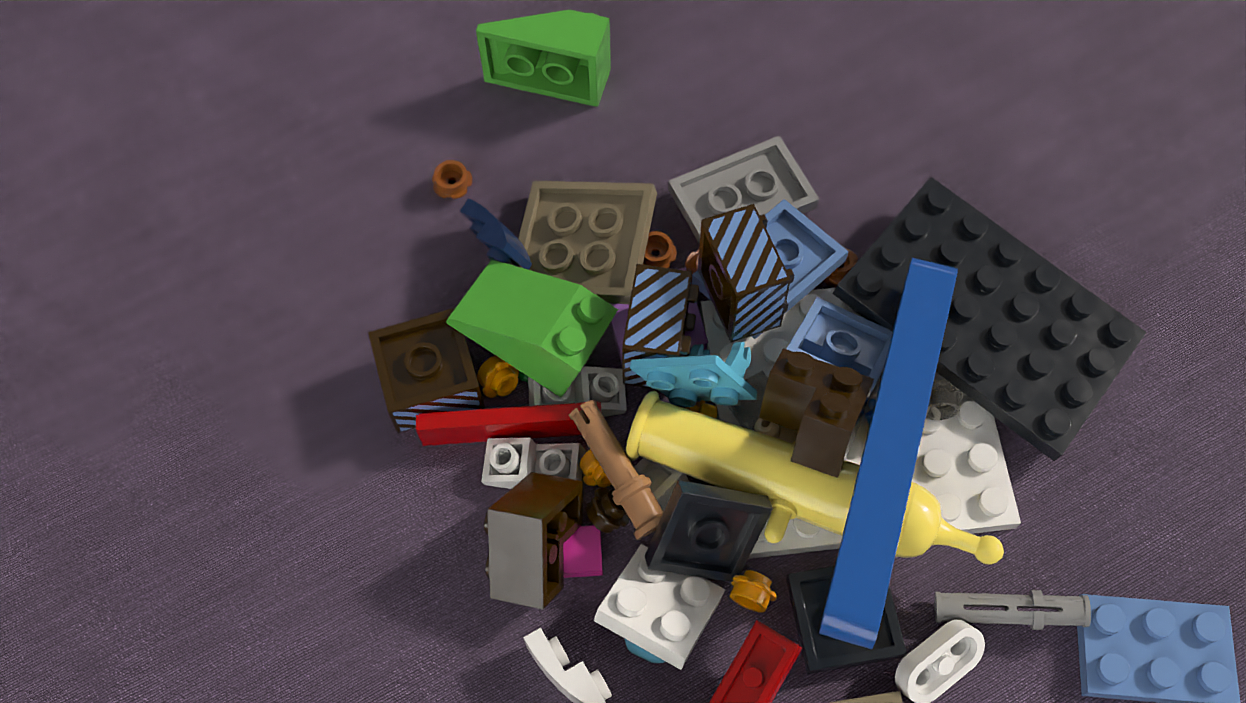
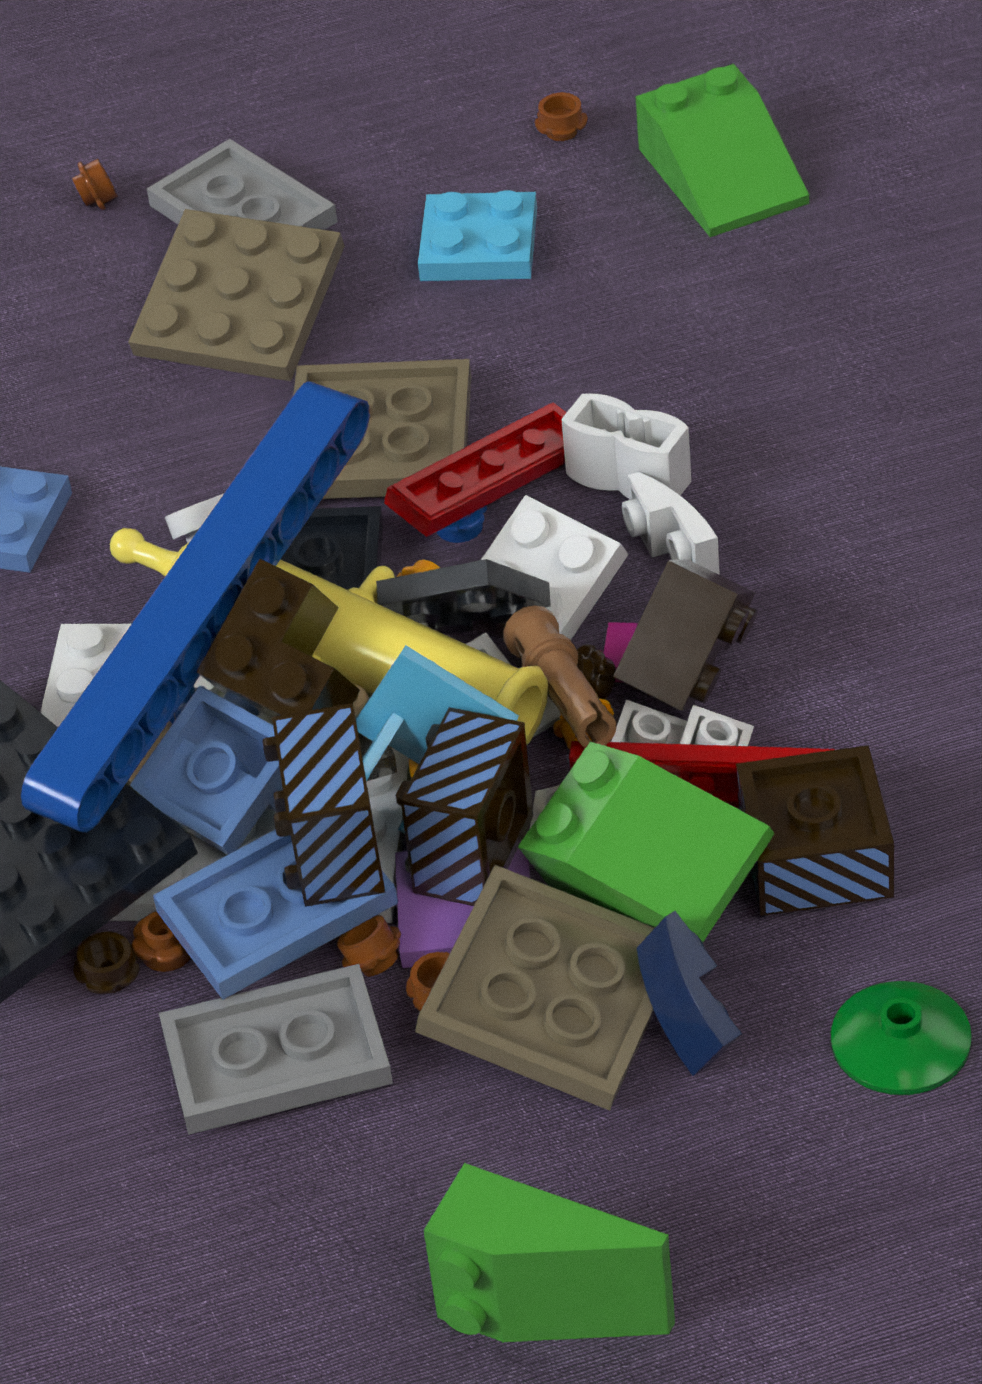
camera: 165 degrees left, 20 degrees down
(375, 275) = (901, 1038): none -> green dish
(451, 171) = (748, 1114): dark orange plate -> none
(863, 233) = (106, 963): none -> dark brown plate
(1071, 609) = (87, 533): light grey pin -> none

